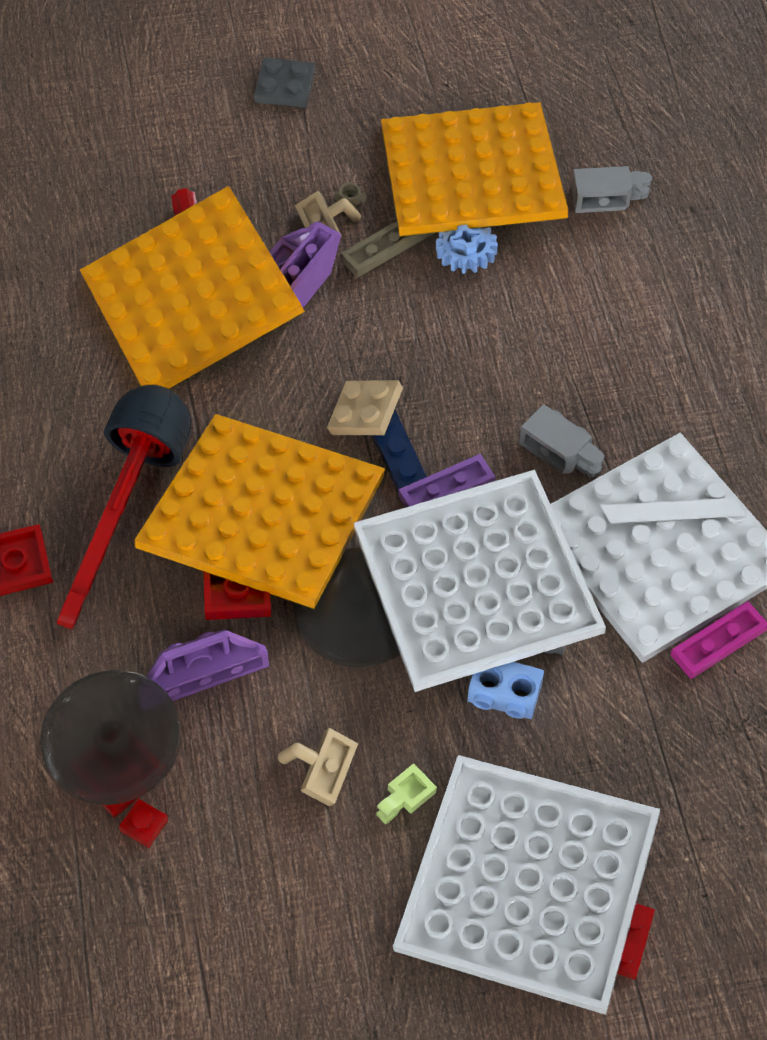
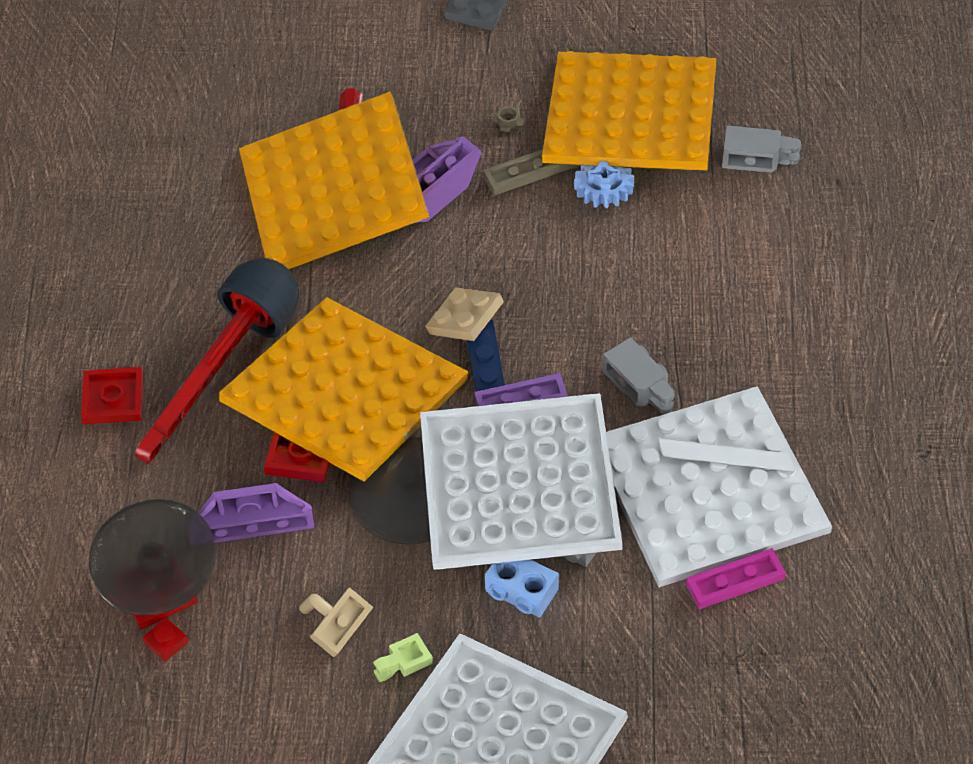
camera: 15 degrees right, 5 degrees down
(315, 209) = (474, 130): tan plate -> none

